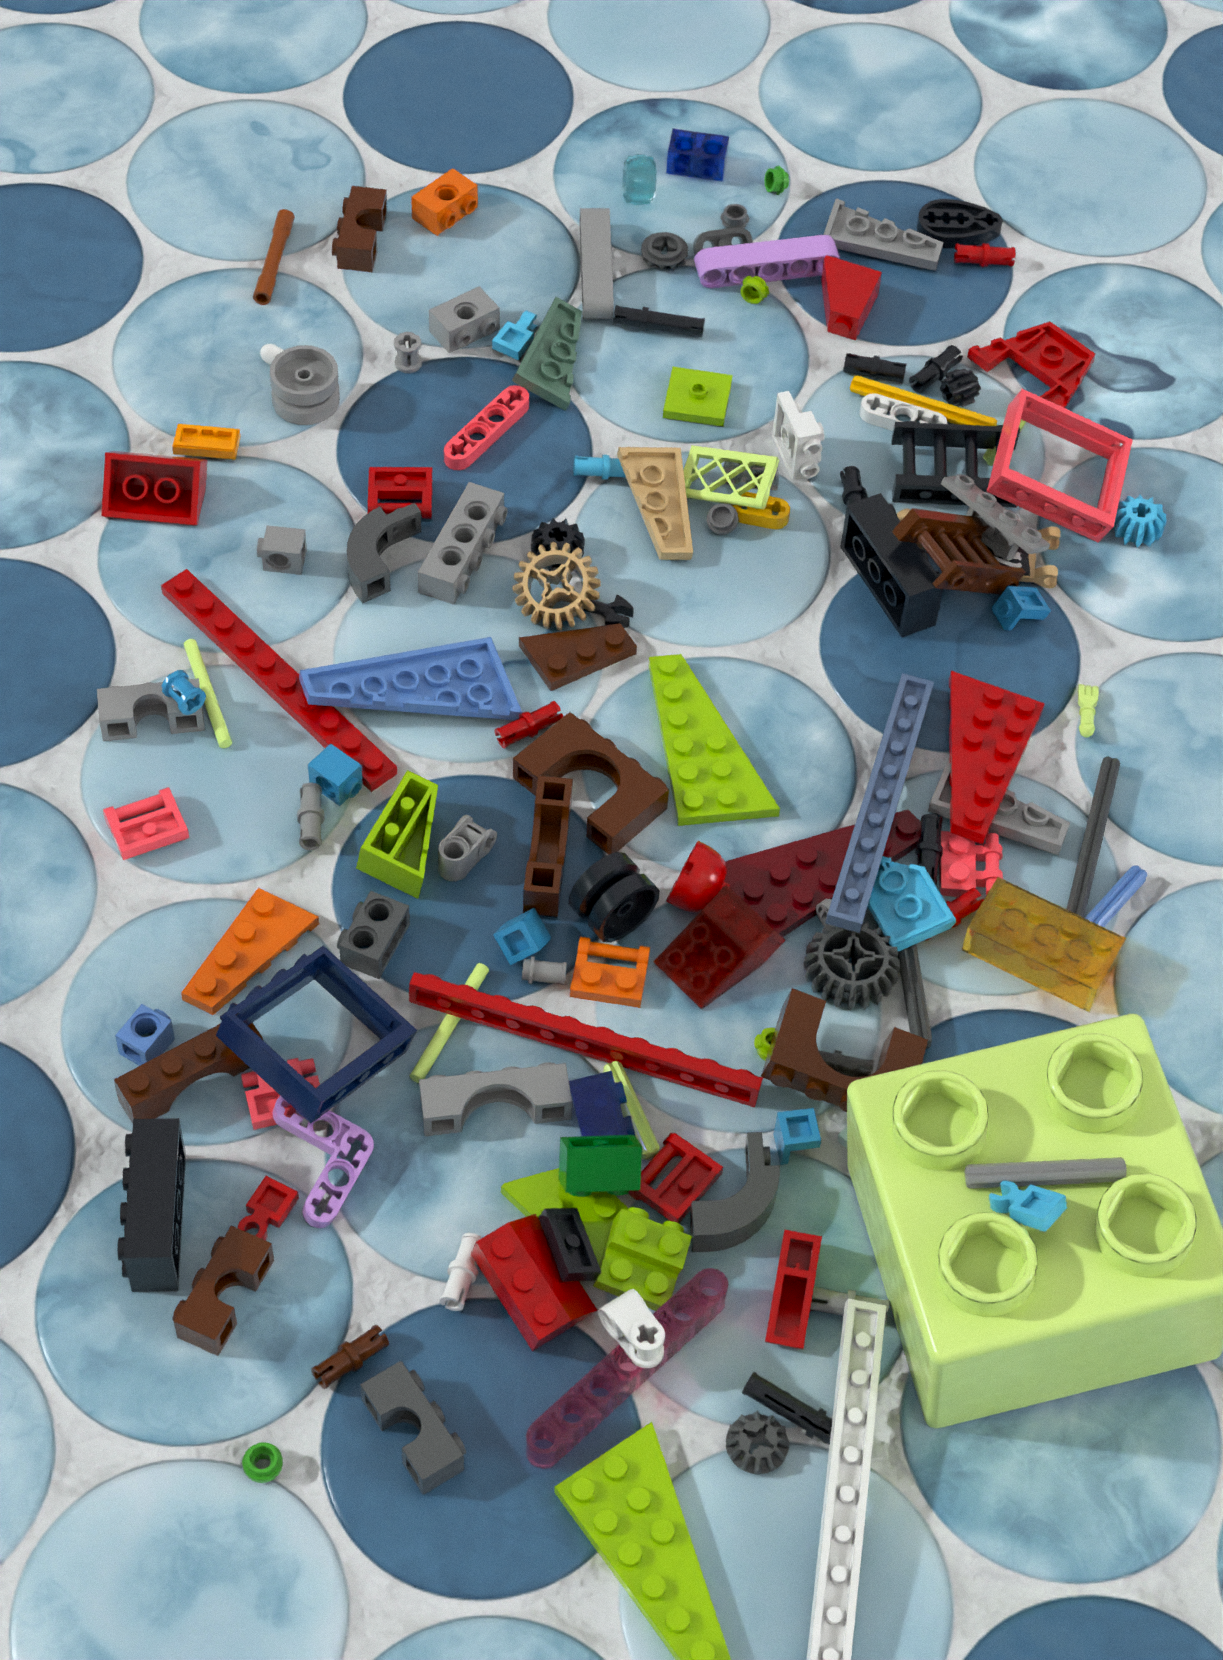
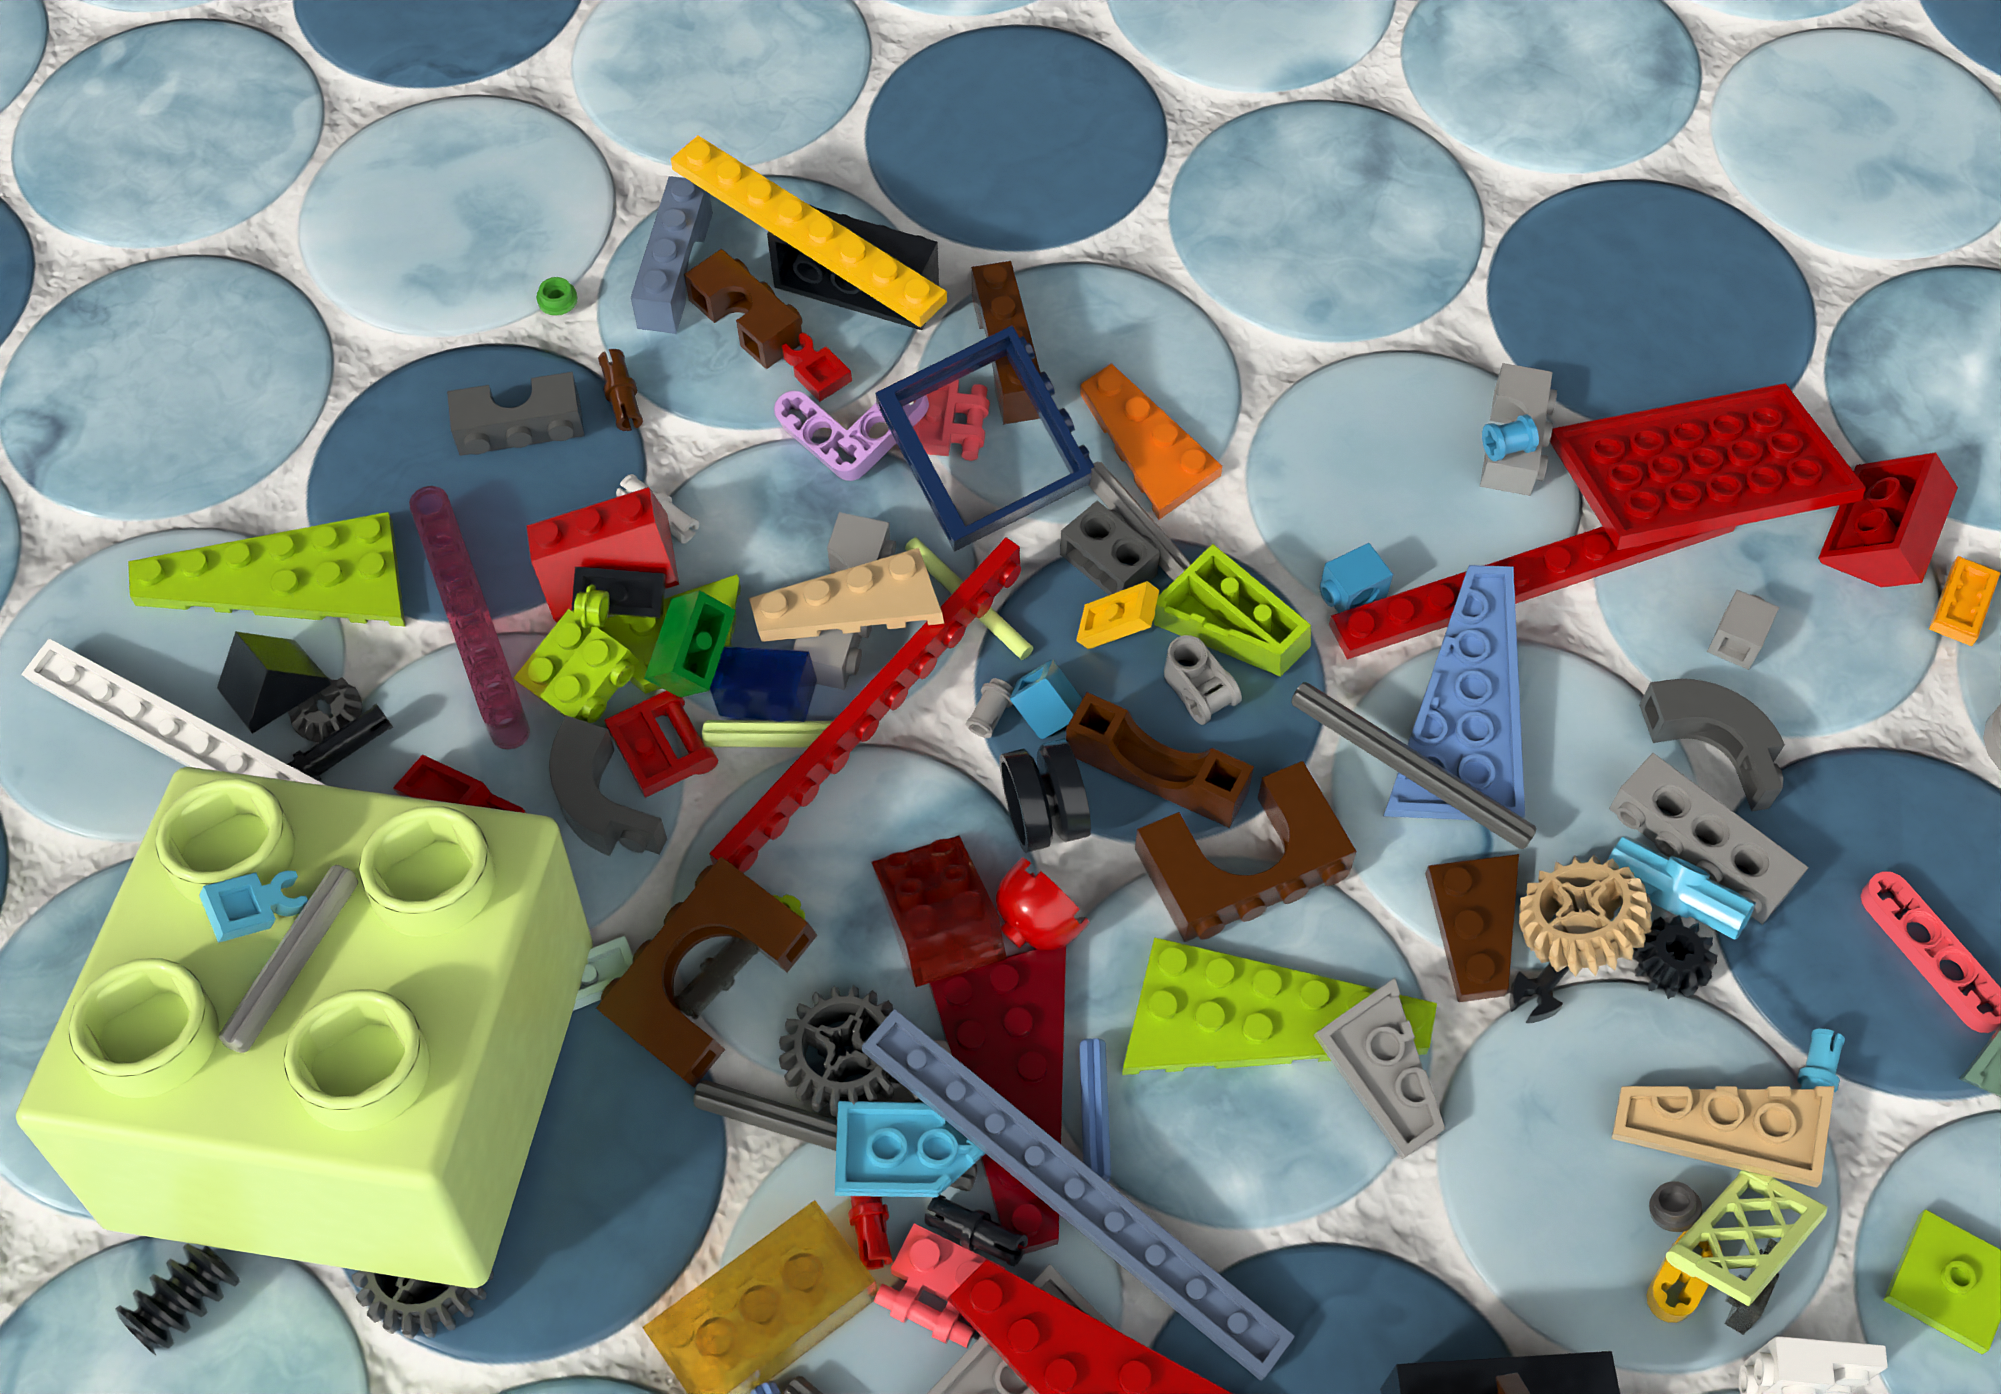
camera: 115 degrees right, 5 degrees up
(143, 1049) = (1066, 317): medium blue brick -> none
(149, 830) = (1341, 392): coral plate -> none
(150, 588) = (1704, 465): none -> red plate
(157, 1225) = (810, 231): none -> yellow plate
(211, 703) = (1516, 497): yellowish green bar -> none
(223, 1363) = (660, 283): none -> sand blue arch
(310, 816) = (1303, 541): light grey pin -> none
(342, 917) = (1120, 500): none -> light grey axle
(400, 484) = (1838, 798): red plate -> none
(437, 904) = (1118, 615): none -> yellow plate
(485, 700) = (1414, 765): none -> dark grey axle
(505, 1064) = (866, 595): none -> tan wing
(508, 547) = (1684, 888): none -> medium azure piece
(528, 724) = (1367, 816): red pin -> none
(598, 1246) = (592, 607): none -> lime plate
(609, 982) = (949, 775): orange plate -> none
(634, 1328) = (483, 604): white piece -> none
(711, 670) = (1382, 1066): none -> light grey wing
(760, 1487) = (267, 678): none -> black slope
(795, 1131) = (640, 877): dark azure panel -> none
(813, 818) = (1095, 1107): none -> medium blue axle

